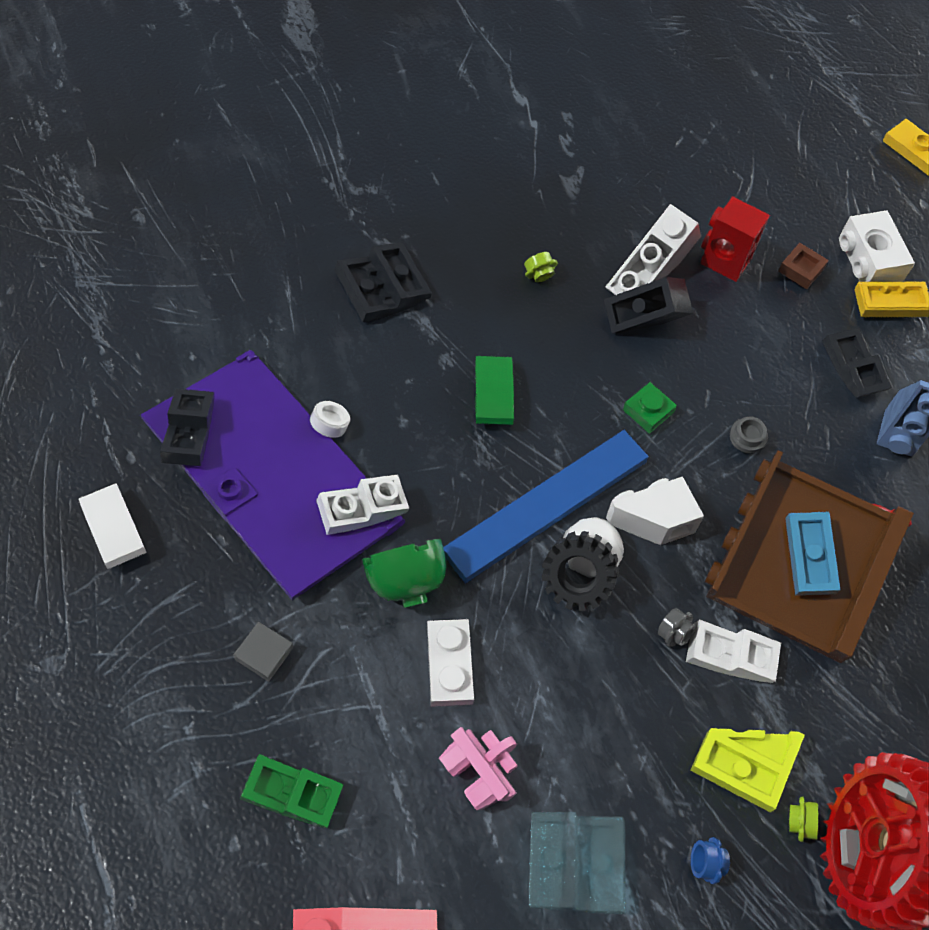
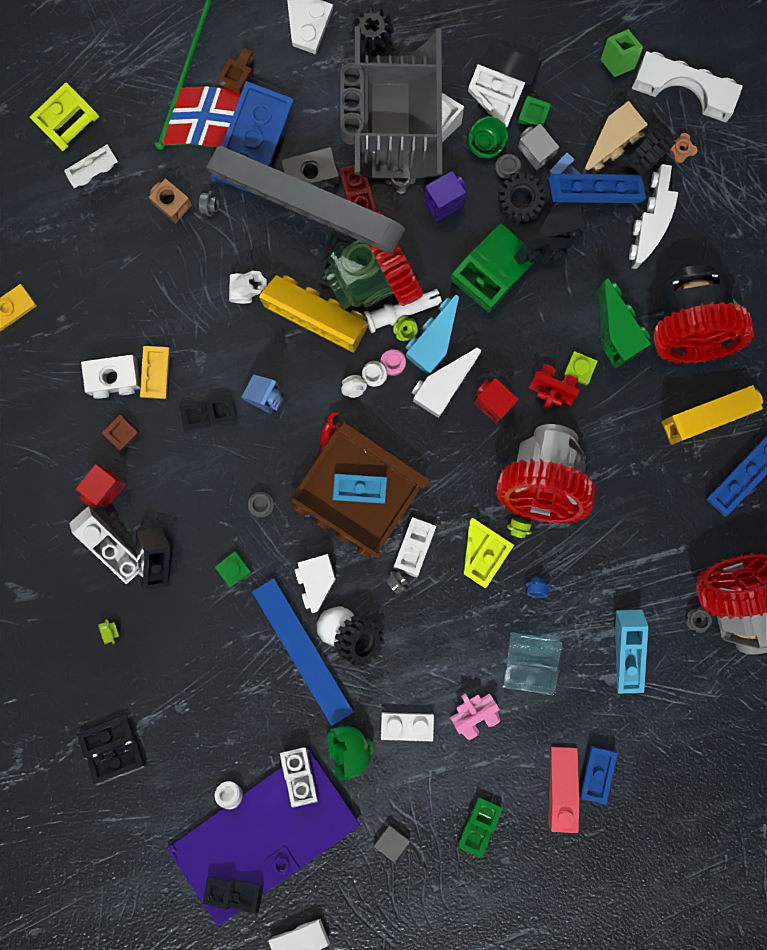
camera: 75 degrees left, 25 degrees up
(494, 390) = (212, 678): green slope -> none

